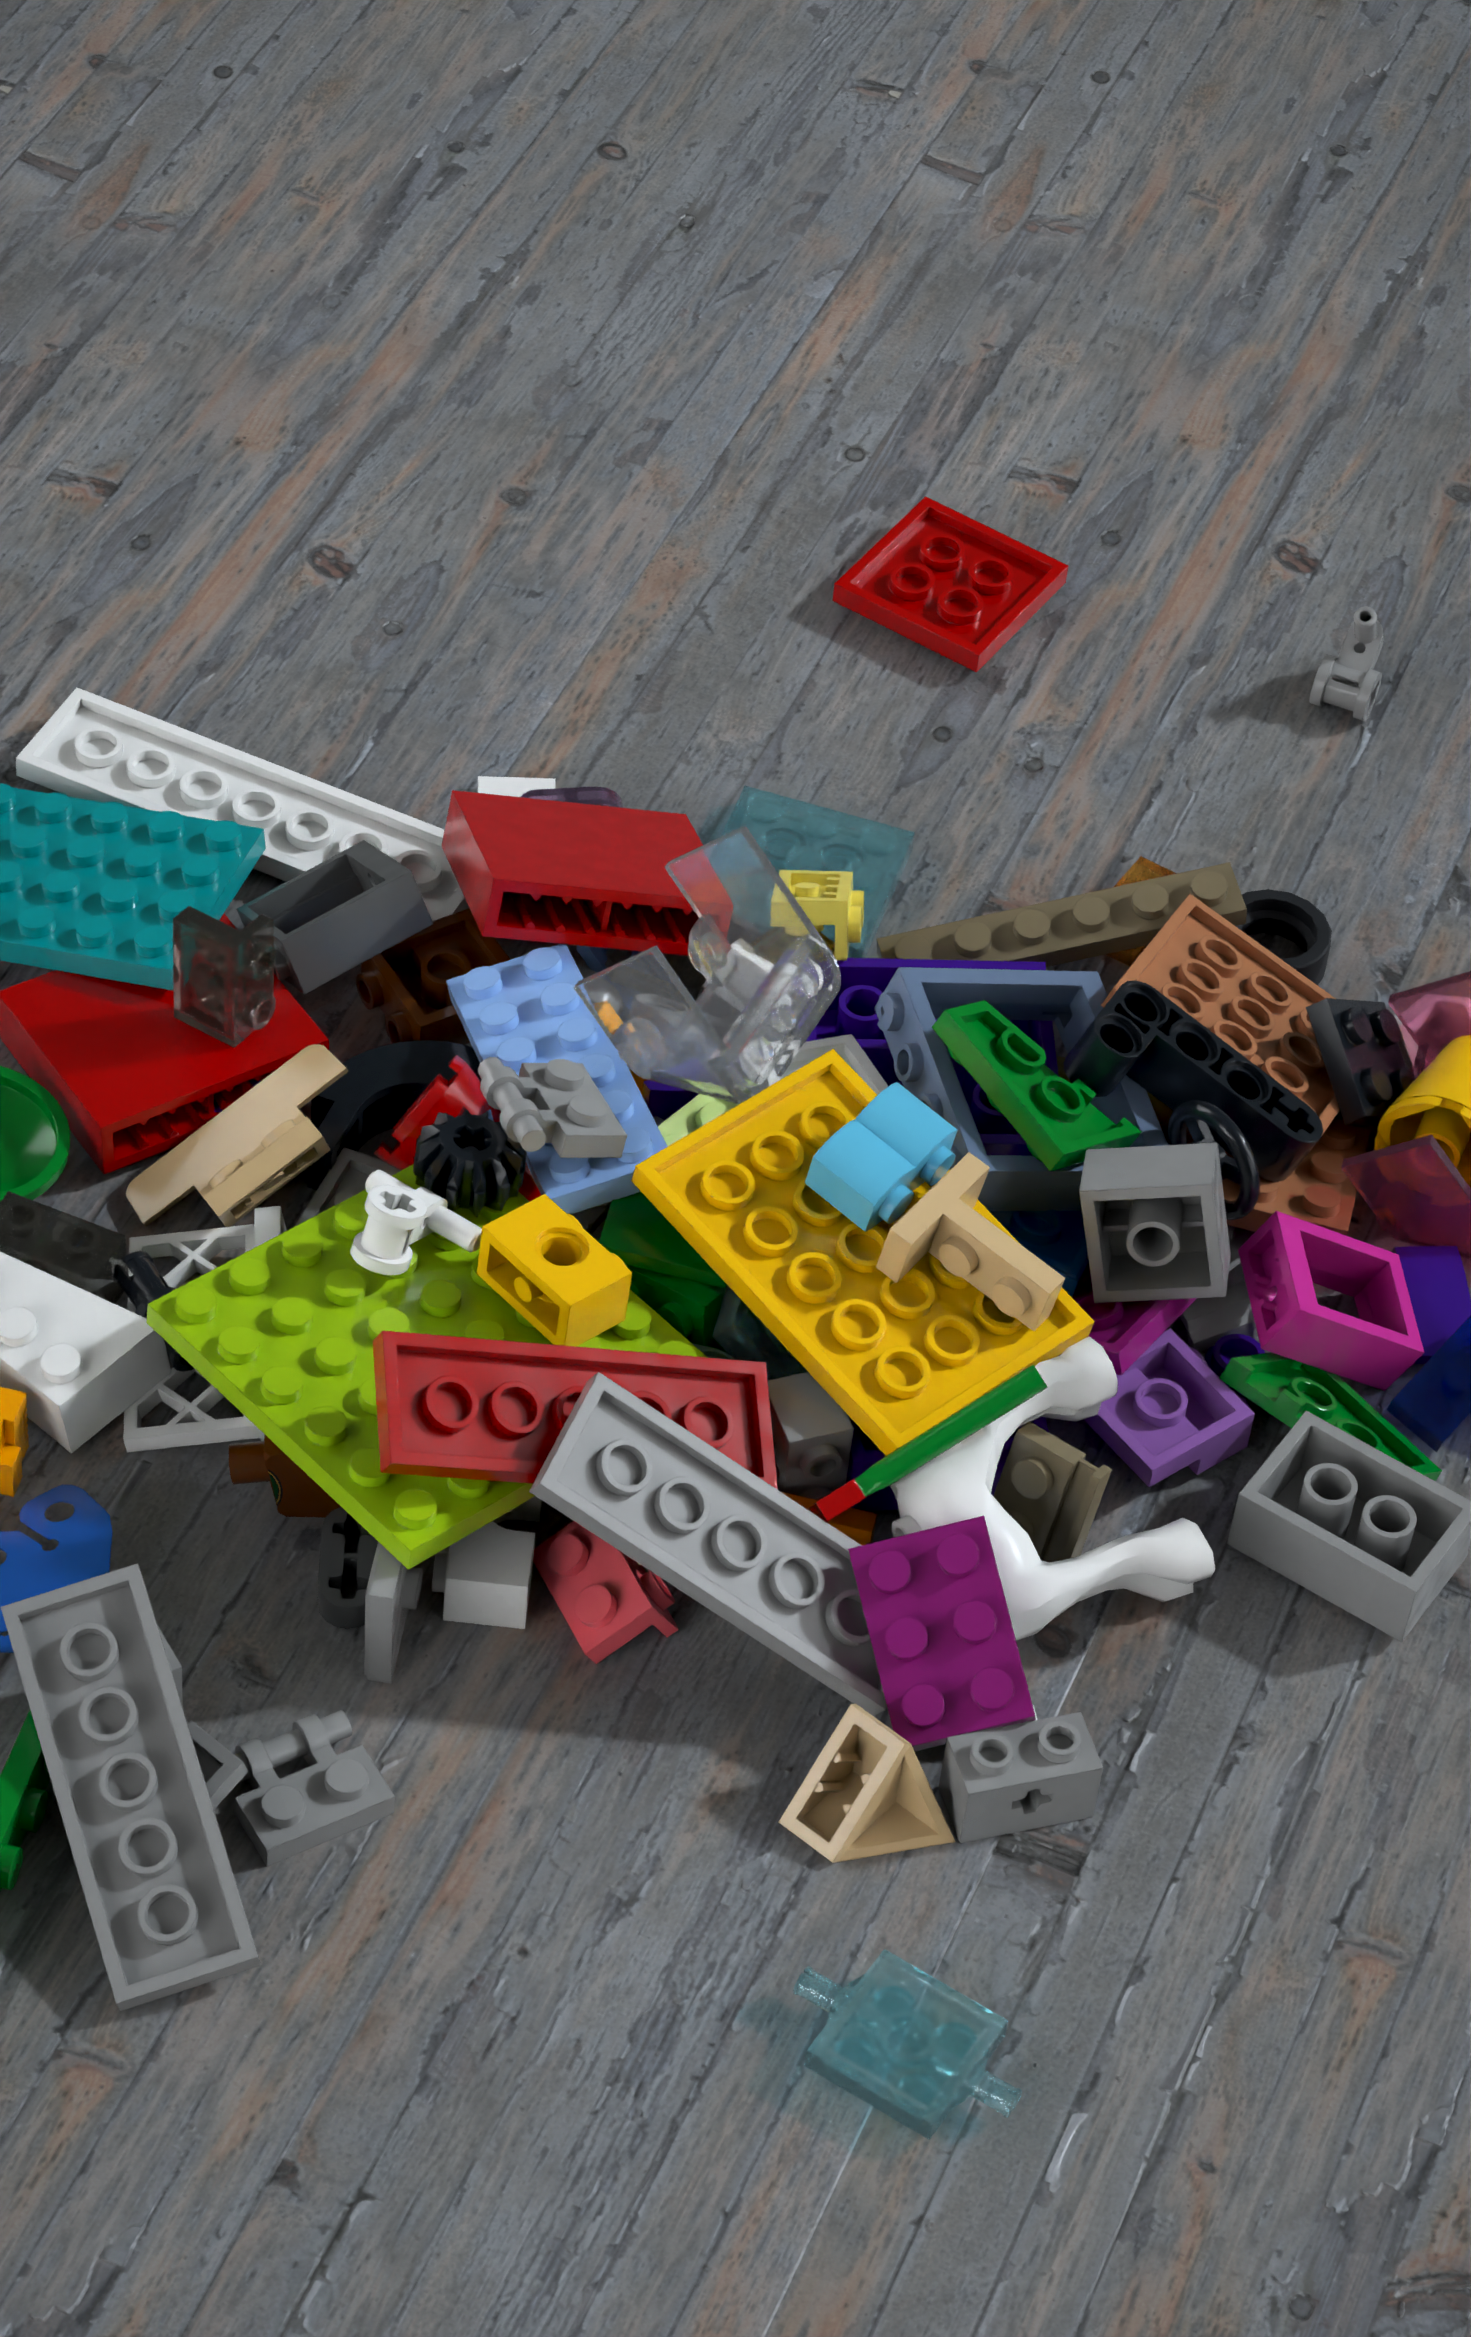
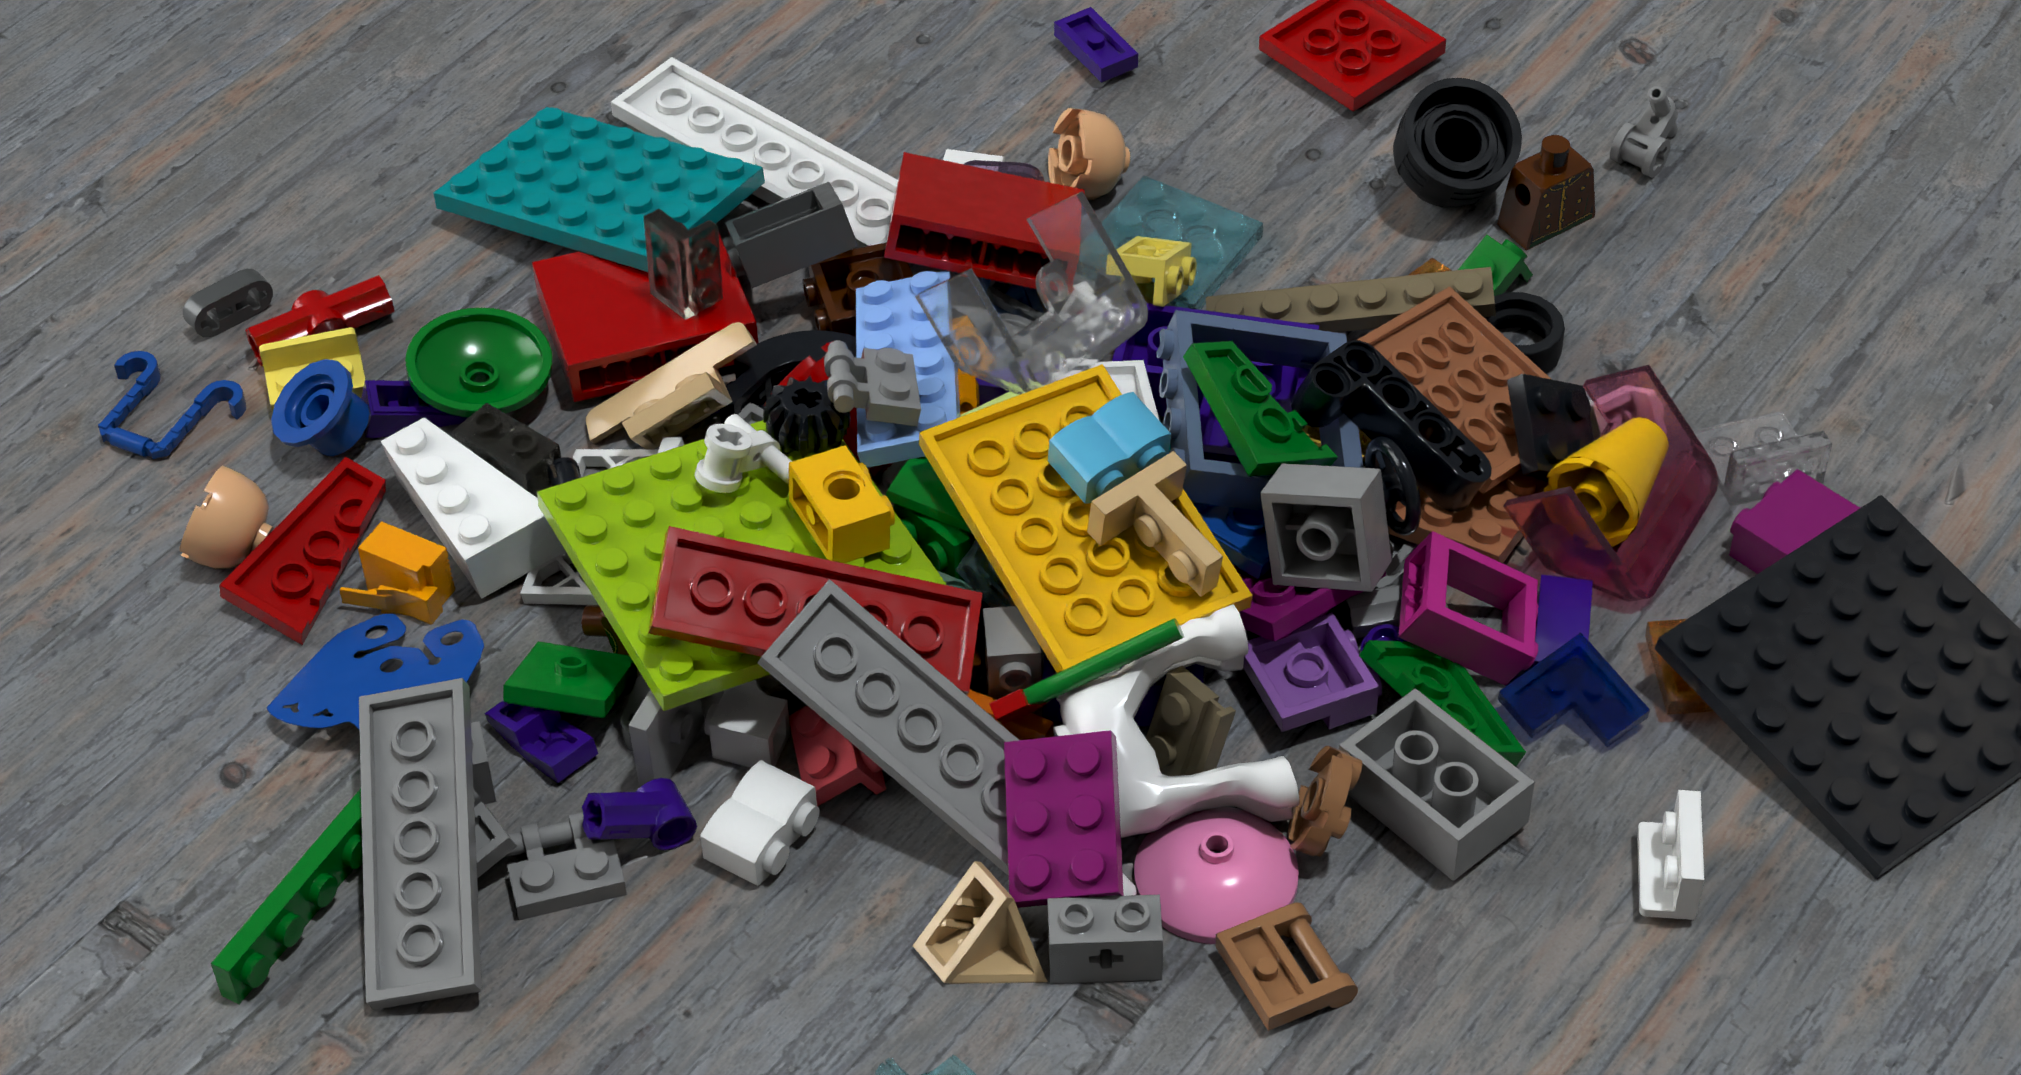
camera: 20 degrees right, 0 degrees up
(208, 1619) = (543, 738): none -> dark purple slope
(236, 1545) = (569, 679): none -> green plate
(395, 1705) = (650, 812): none -> dark purple piece
(543, 1696) = (759, 823): none -> white brick
(626, 614) = (1096, 44): none -> dark purple plate
(668, 763) = (1088, 153): none -> light nougat cylinder
(1133, 1700) = (1212, 890): none -> bright pink dish
(1139, 705) = (1456, 142): none -> black piece
(1218, 846) = (1504, 259): none -> green bracket
(1228, 1788) = (1271, 973): none -> medium nougat plate
(1244, 1573) = (1322, 804): none -> medium nougat plate
(1258, 758) = (1547, 194): none -> reddish brown torso

